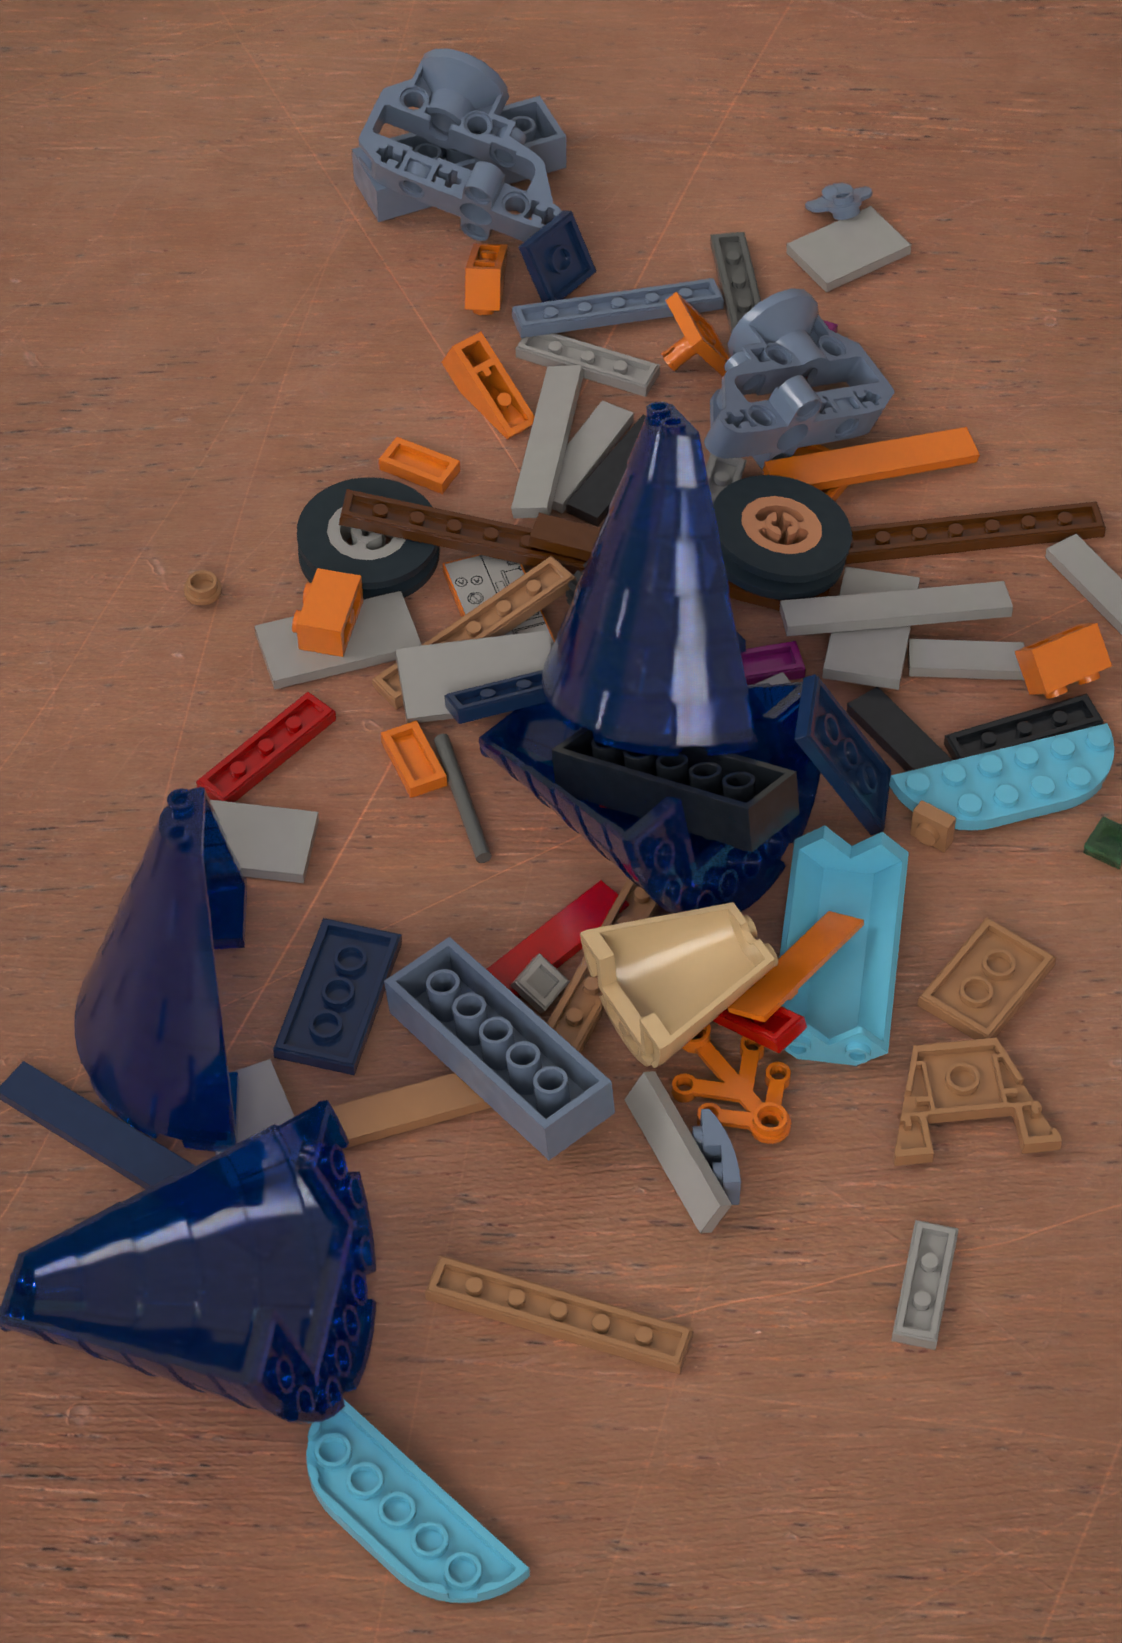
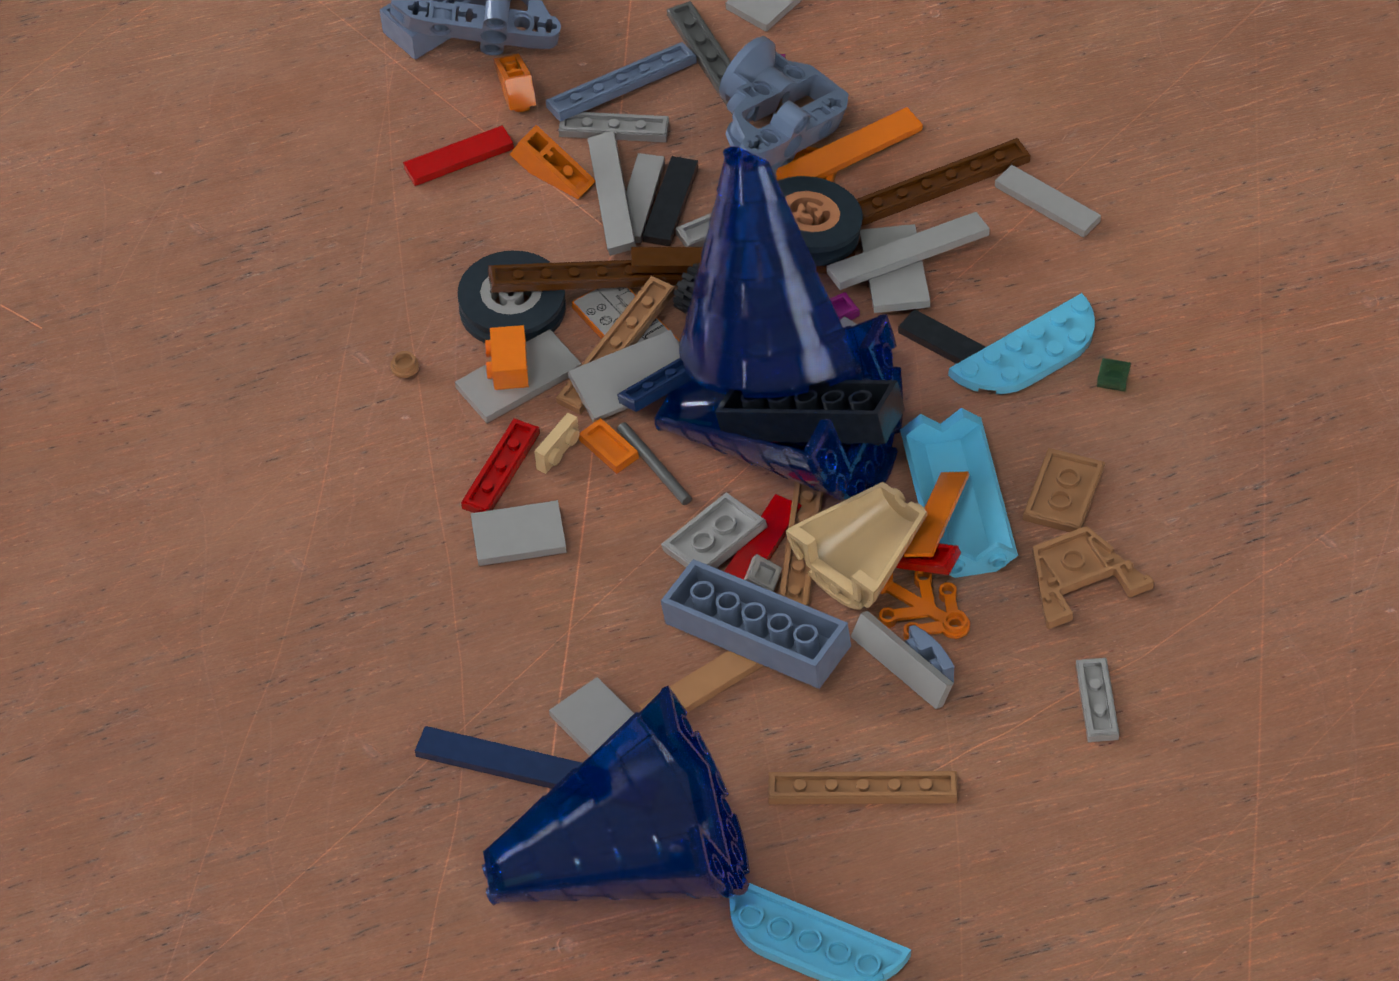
camera: 15 degrees left, 0 degrees up
(152, 994) = (512, 646): clear blue cone -> none
(338, 996) = (624, 622): dark blue tile -> none
(347, 737) = (556, 443): none -> tan plate
(380, 349) = (458, 155): none -> red tile
(419, 465) = (523, 234): orange tile -> none
(500, 911) = (715, 533): none -> light grey tile
(557, 258) = (565, 55): dark blue tile -> none
(698, 338) = (691, 91): orange tile -> none
(843, 754) = (916, 361): dark blue tile -> none
(932, 826) = (989, 395): medium nougat plate -> none
(964, 659) = (968, 273): light grey tile -> none
(1024, 727) = (1025, 311): black tile -> none
(1063, 659) = (1037, 256): orange brick -> none

